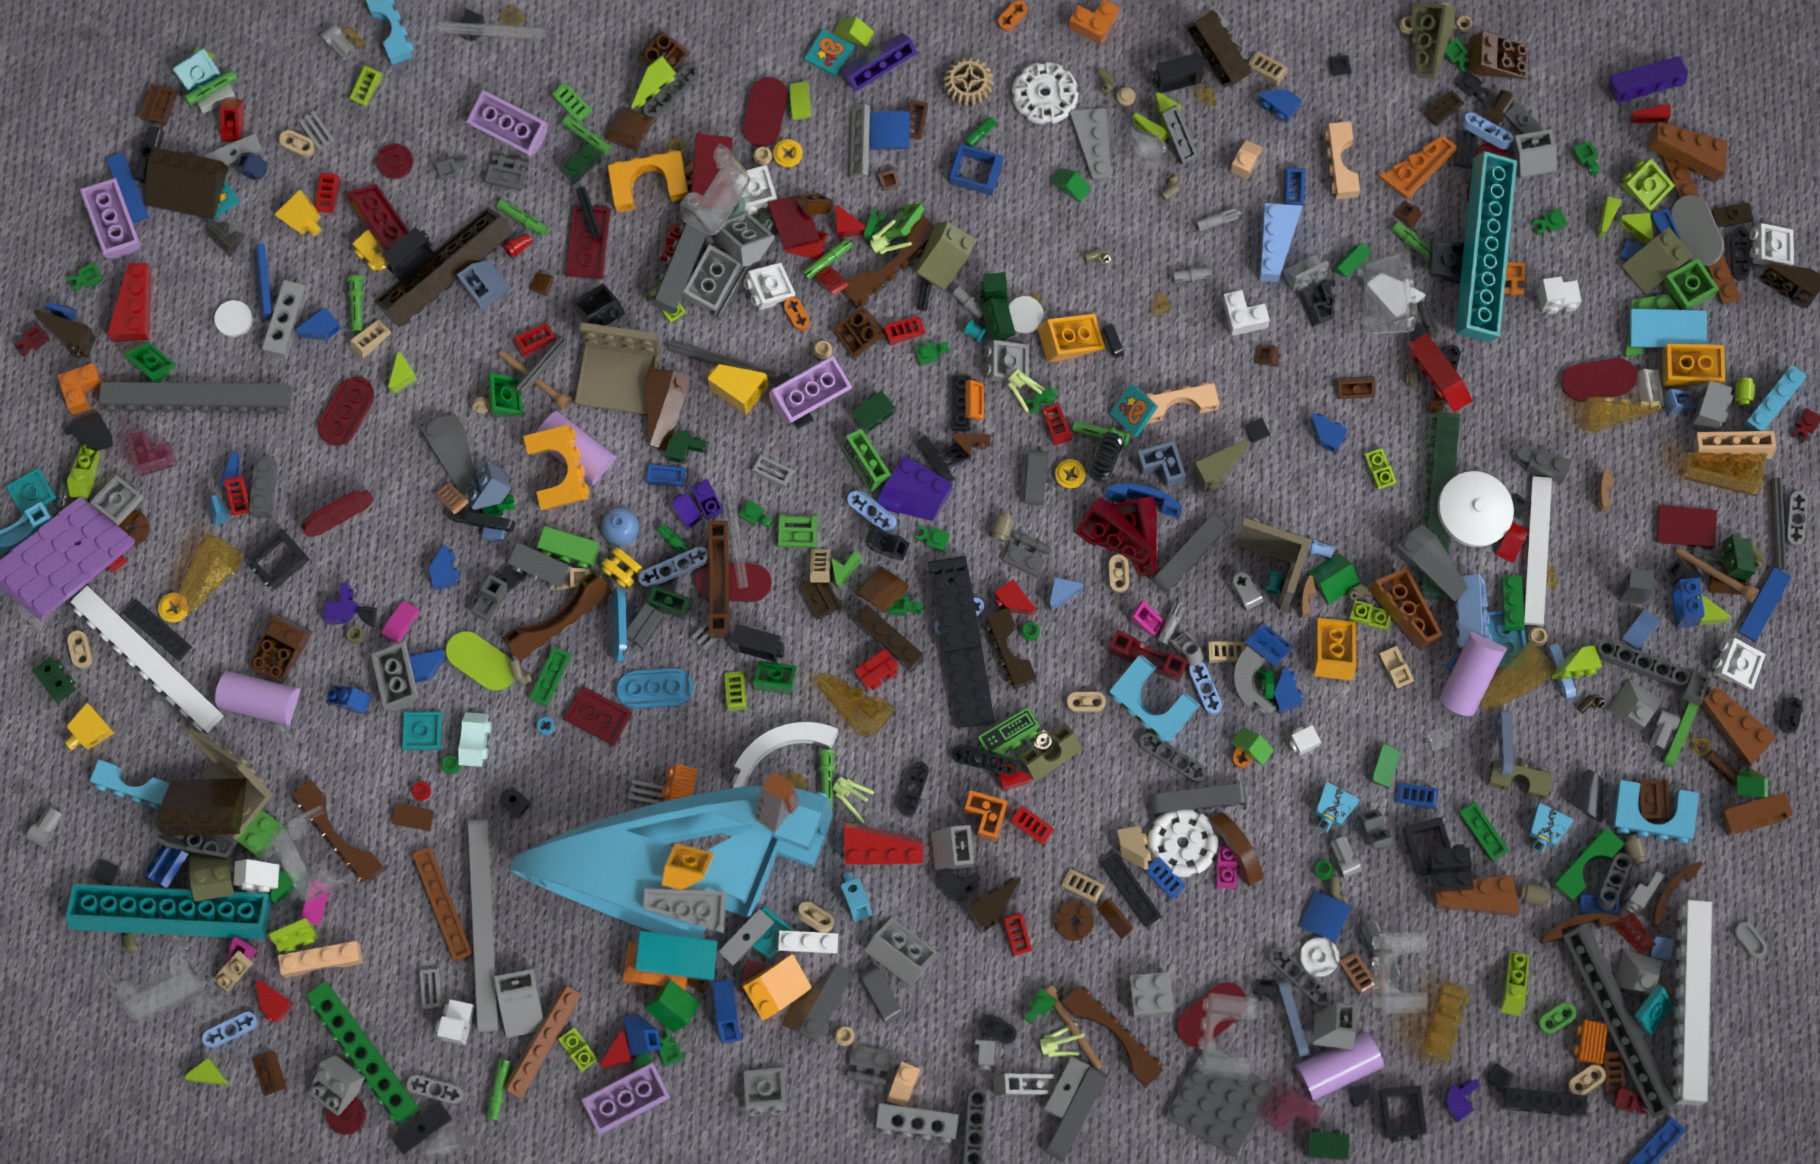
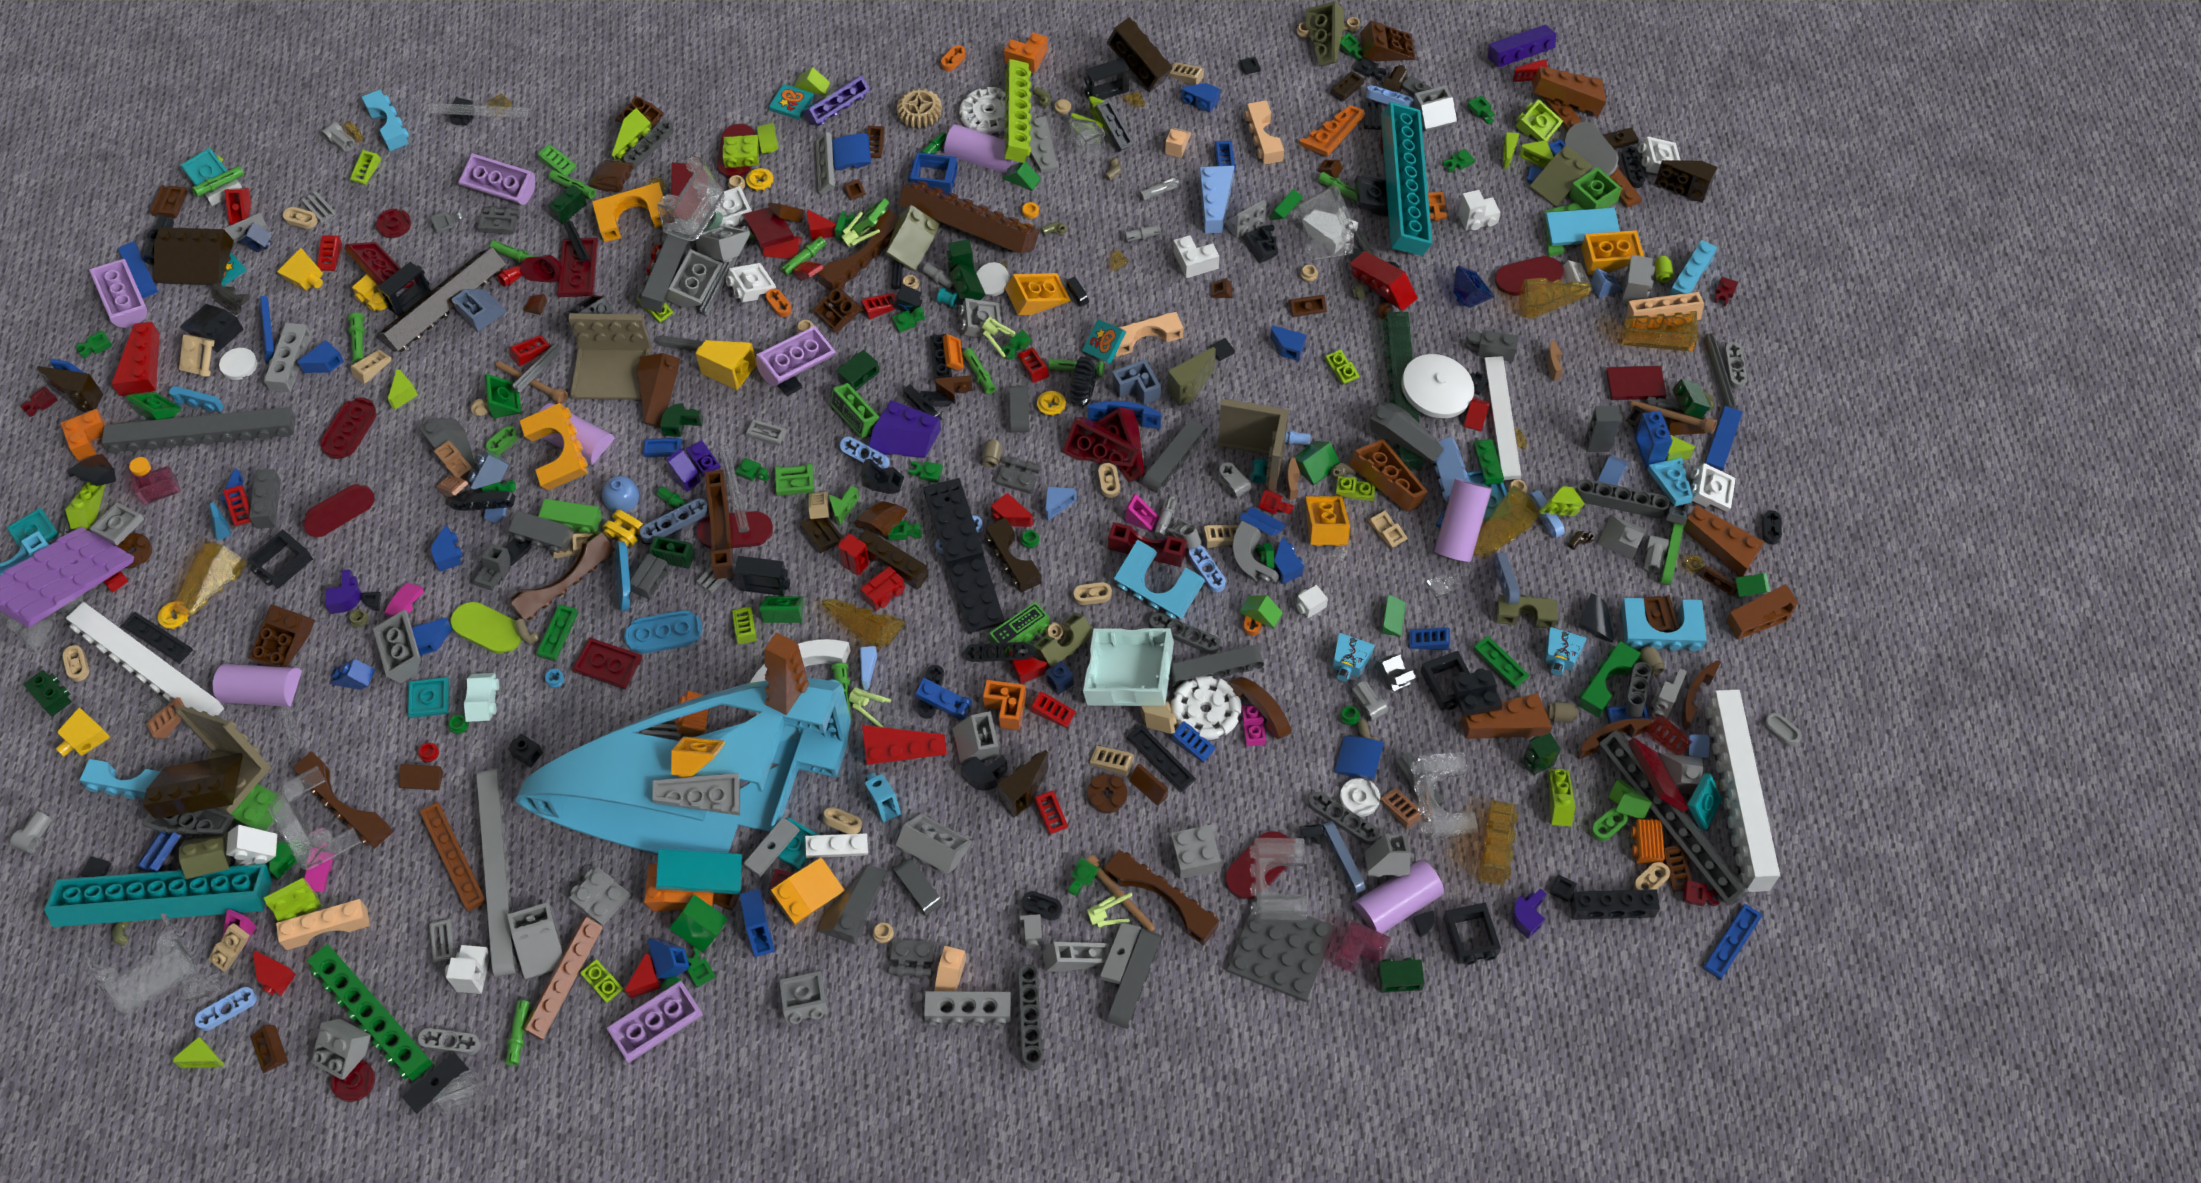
camera: 10 degrees left, 15 degrees down
(140, 440) = (140, 466): none -> light orange tile
(161, 729) = (162, 724): none -> nougat slope
(187, 305) = (192, 352): none -> tan plate
(190, 359) = (196, 399): none -> dark azure plate
(206, 270) = (213, 324): none -> black slope
(453, 469) = (453, 460): none -> medium nougat slope
(499, 443) = (502, 440): none -> bright green beam
(553, 242) = (541, 268): none -> dark red piece
(579, 963) = (599, 896): none -> light grey plate
(770, 116) = (741, 151): none -> lime plate
(850, 630) = (853, 554): none -> red brick
(855, 746) = (868, 660): none -> light blue slope
(924, 800) = (942, 698): none -> blue plate
(933, 330) = (908, 299): none -> black brick
(937, 312) = (910, 279): none -> tan plate
(1007, 445) = (987, 384): none -> bright green pin
(1008, 236) = (970, 217): none -> reddish brown brick
(1030, 142) = (977, 148): none -> lavender brick
(1042, 793) = (1059, 677): none -> dark blue brick
(1065, 159) = (1017, 111): none -> lime brick
(1075, 229) = (1030, 210): none -> light orange tile
(1112, 793) = (1129, 667): none -> light aqua tile
(1283, 622) = (1273, 502): none -> red plate
(1363, 347) = (1309, 273): none -> tan plate
(1503, 939) = (1541, 753): none -> dark green brick
(1533, 389) = (1470, 288): none -> clear blue slope
(1581, 998) = (1629, 800): none -> bright green slope
(1612, 979) = (1658, 775): none -> dark red tile
(1699, 650) = (1672, 480): none -> medium azure wing

